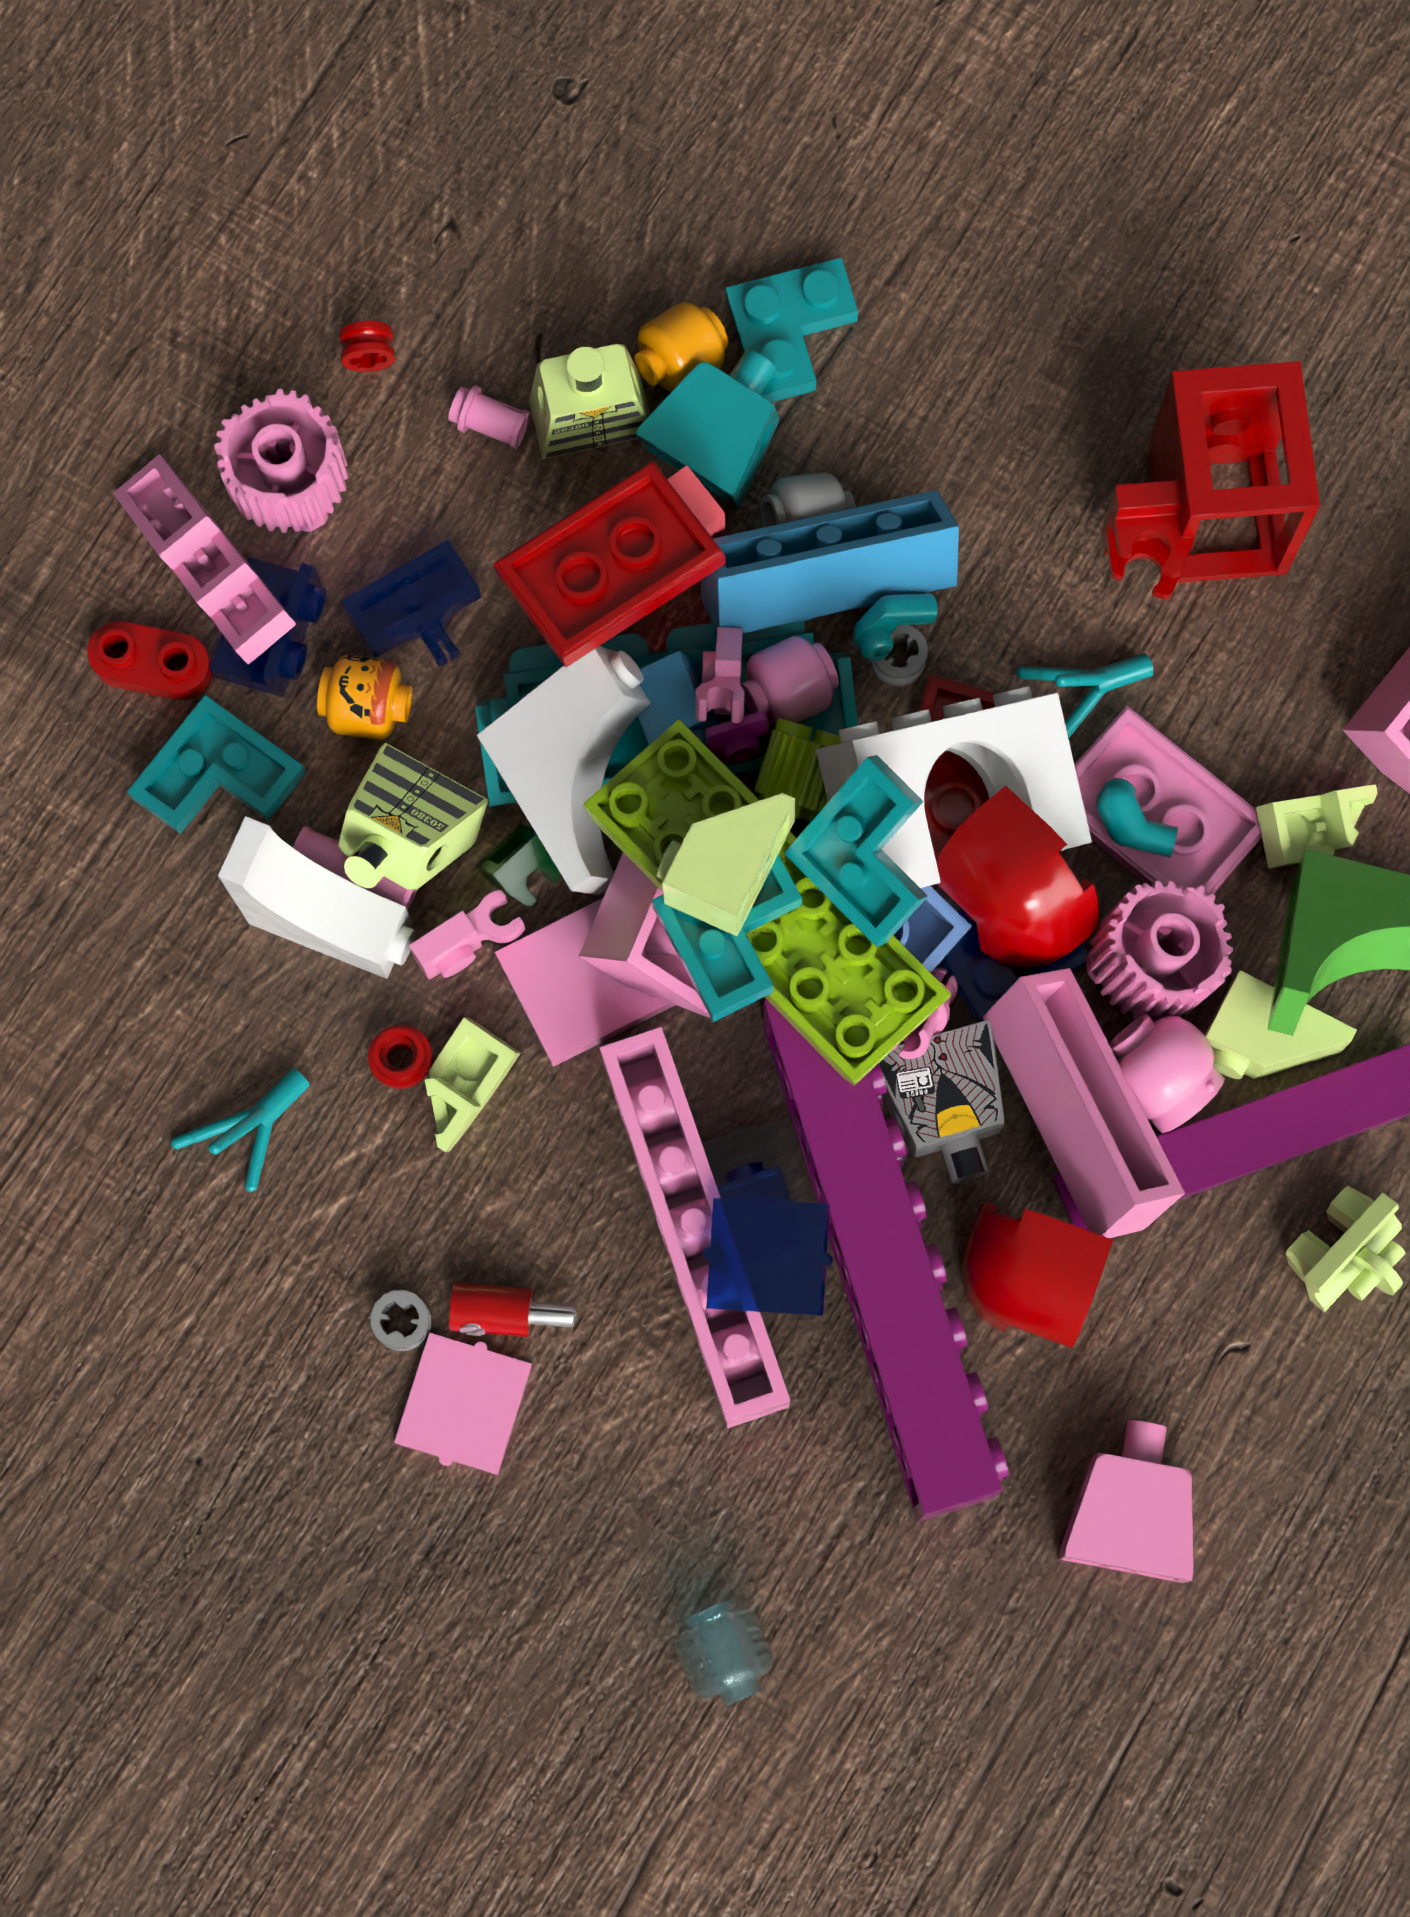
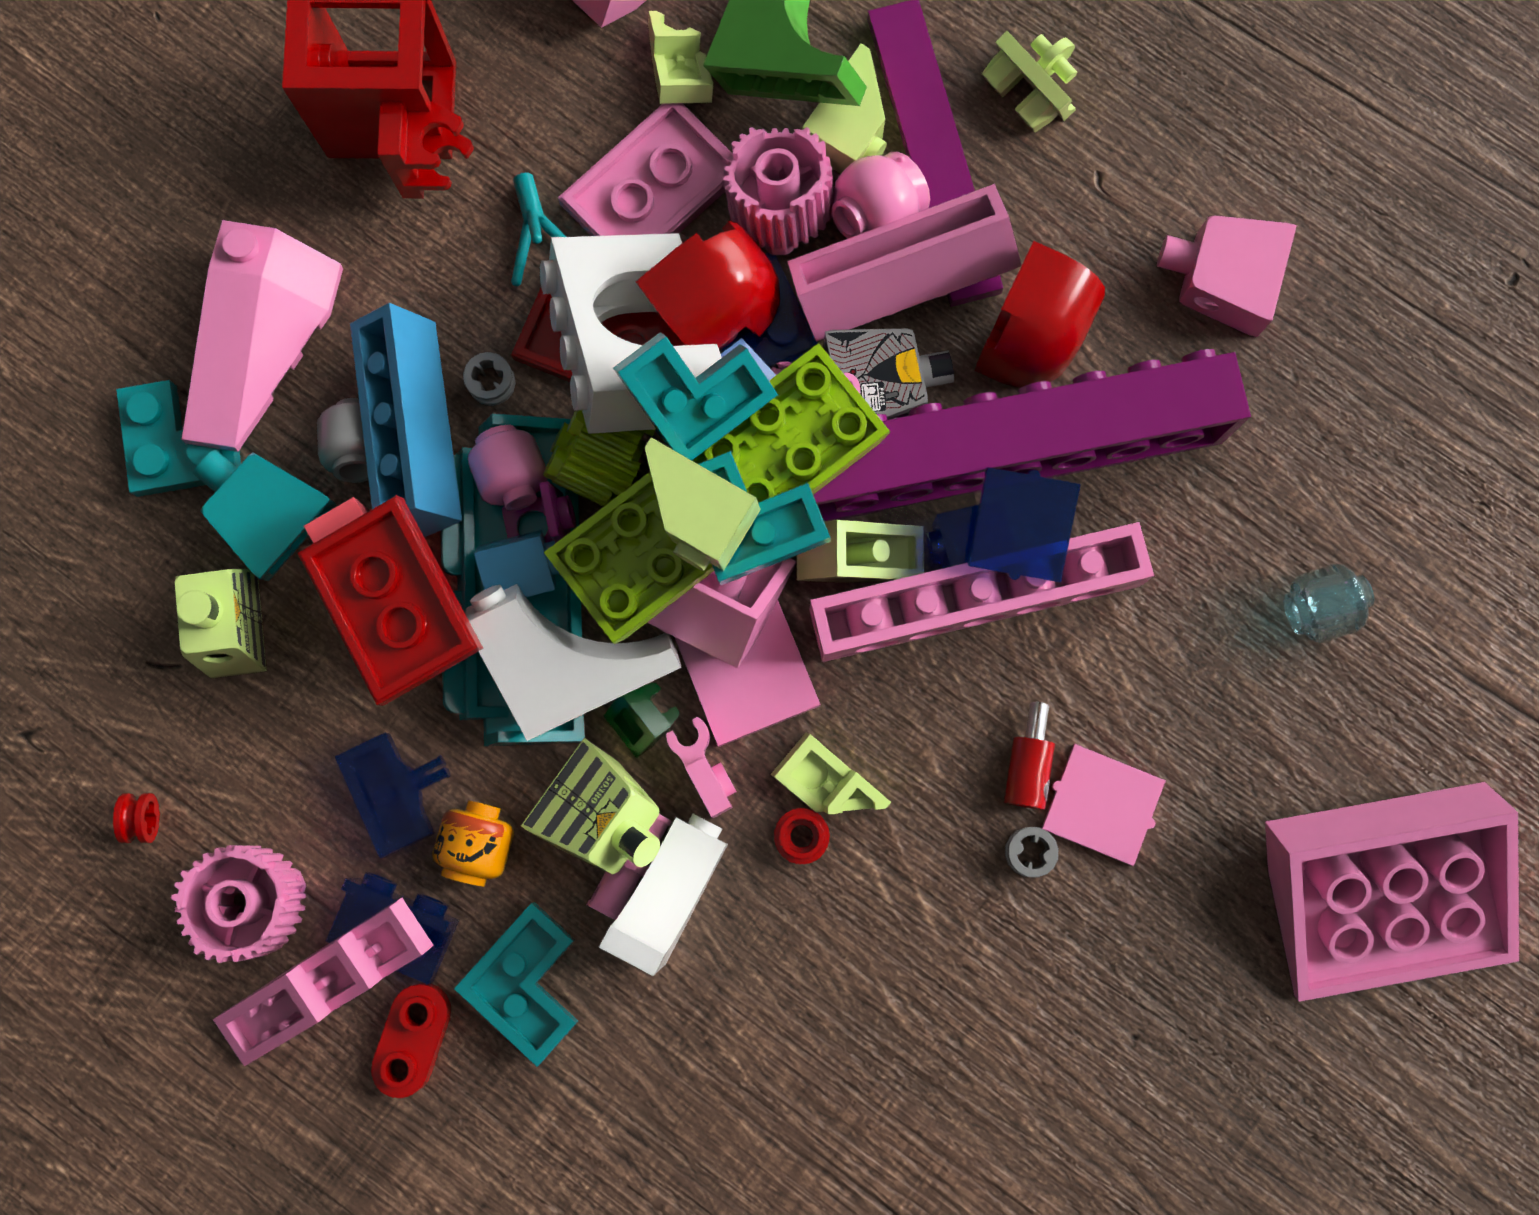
camera: 85 degrees left, 5 degrees up
(262, 1114) = (847, 966): teal plant -> none
(385, 1752) = (1396, 889): none -> bright pink slope
(488, 416) = (220, 713): bright pink pin -> none
(678, 342) = (179, 535): light orange head -> none
(722, 678) = (498, 518): bright pink plate -> none
(731, 1090) = (864, 553): none -> yellowish green slope
(888, 613) = (454, 375): teal arm -> none
(936, 390) = (255, 318): none -> bright pink wedge
(1127, 823) = (662, 204): teal arm -> none

